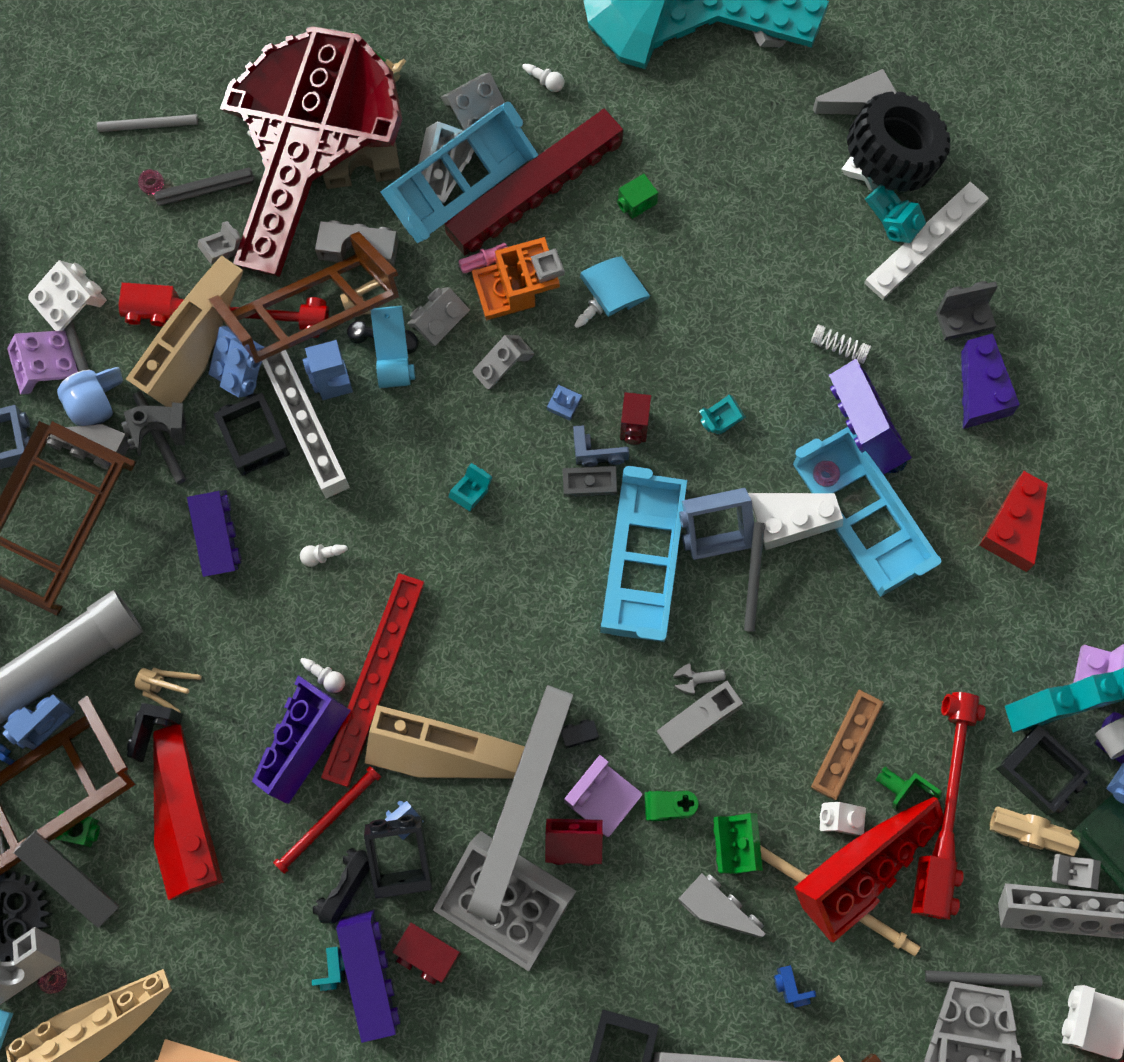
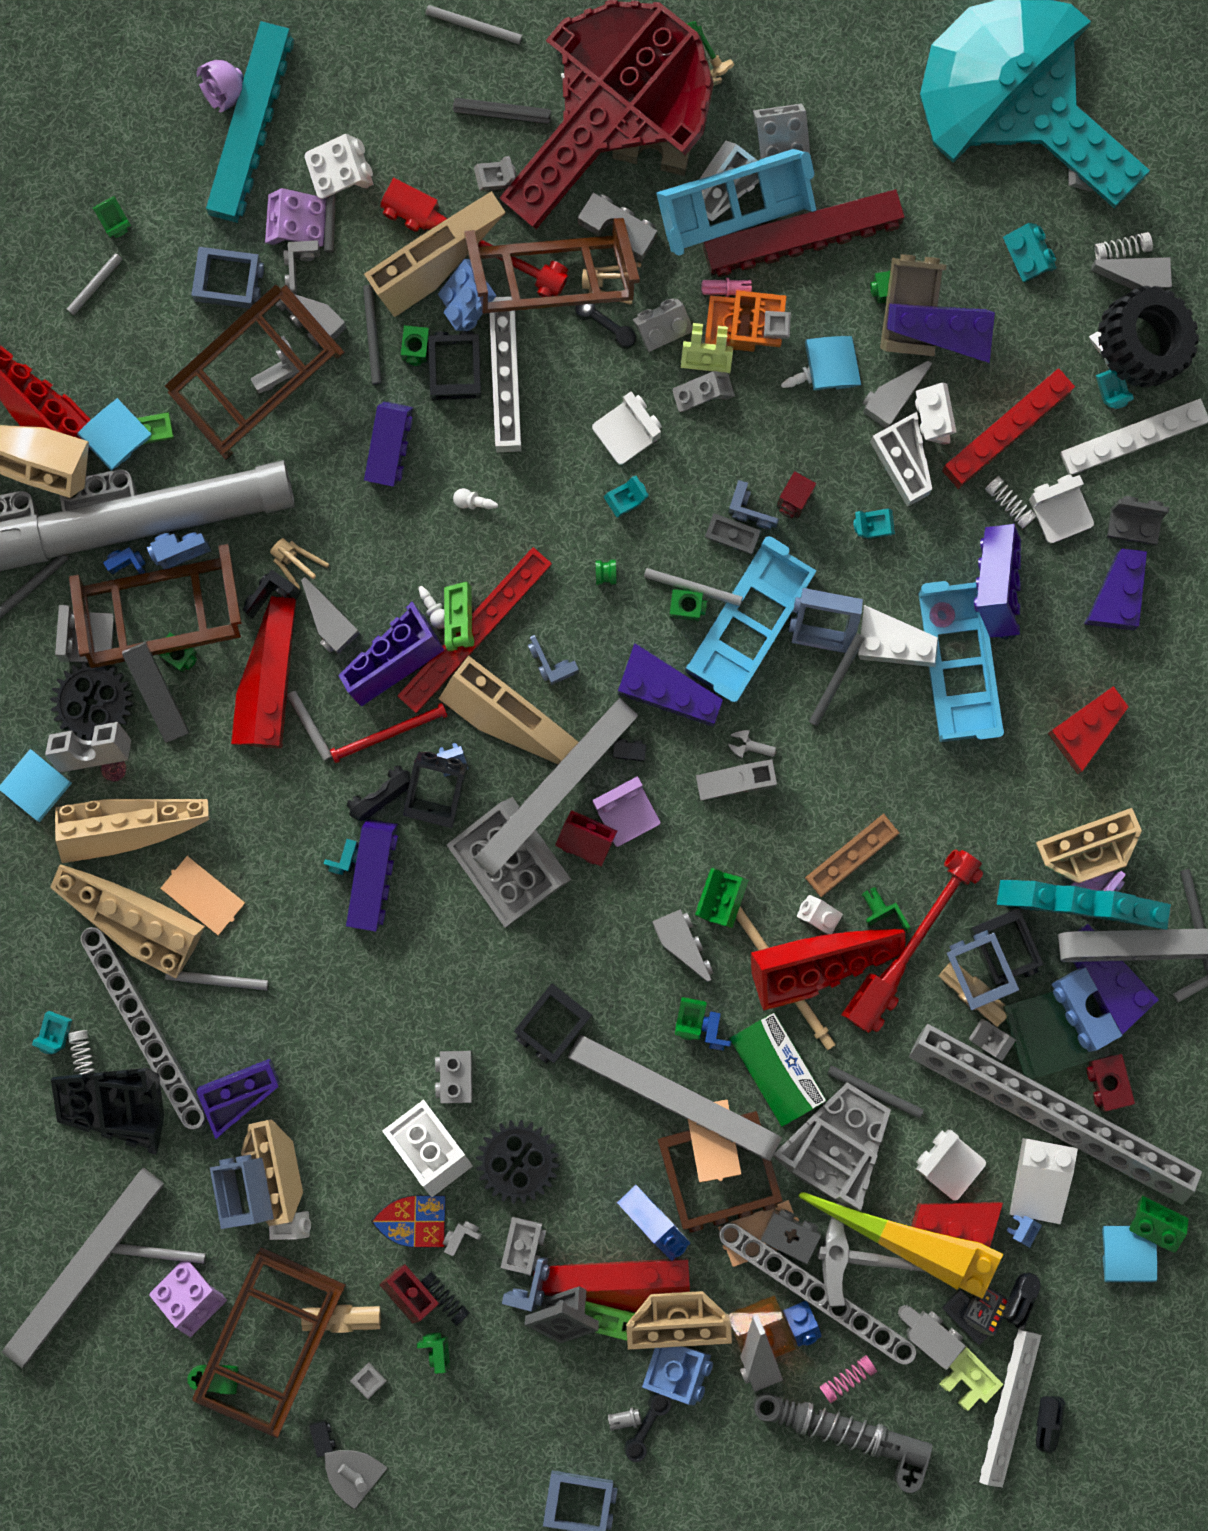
camera: 20 degrees right, 10 degrees up
(50, 393) = (306, 252): none -> light grey bracket
(71, 519) = (269, 378): none -> light grey bracket
(85, 395) = (321, 273): light blue piece -> none
(149, 175) = (455, 78): clear pink plate -> none
(162, 418) = (384, 323): dark grey tile -> none
(197, 421) = (415, 334): none -> green brick
(224, 733) = (330, 623): none -> light grey slope
(241, 845) = (309, 725): none -> light grey bar
(327, 370) = (543, 340): medium blue arch -> none
(351, 671) = (458, 616): none -> bright green plate
(391, 347) = (608, 340): medium azure door -> none
(426, 953) = (426, 877): dark red brick -> none
(445, 423) = (627, 429): none -> white bracket
(478, 681) = (562, 670): none -> sand blue bracket
(481, 568) = (606, 572): none -> green wheel
(491, 327) = (707, 356): none -> yellowish green plate
(552, 80) = (862, 139): white bar -> none
(564, 402) = (741, 452): medium blue tile -> none
(569, 577) = (677, 611): none -> green brick
(573, 547) = (693, 587): none -> light grey bar
(591, 656) = (663, 687): none -> dark purple wedge
(664, 805) = (675, 840): green piece -> none
(665, 201) = (911, 284): none -> dark tan panel
(684, 293) = (891, 397): none -> light grey slope
(714, 207) = (952, 328): none -> dark purple wedge
(723, 344) = (904, 458): none -> white wedge
(735, 286) = (936, 413): none -> white bracket
(750, 117) = (1030, 251): none -> teal bracket
(761, 984) = (690, 1018): none -> green bracket
(806, 278) = (1008, 428): none -> red brick
(853, 70) = (1145, 241): none -> white piece
(874, 999) = (777, 1069): none -> green slope
(891, 330) = (1061, 509): none -> white bracket
(906, 225) = (1120, 417): teal bracket -> none
(1057, 824) = (994, 994): none -> sand blue window
(1081, 634) = (1092, 848): none -> tan wedge

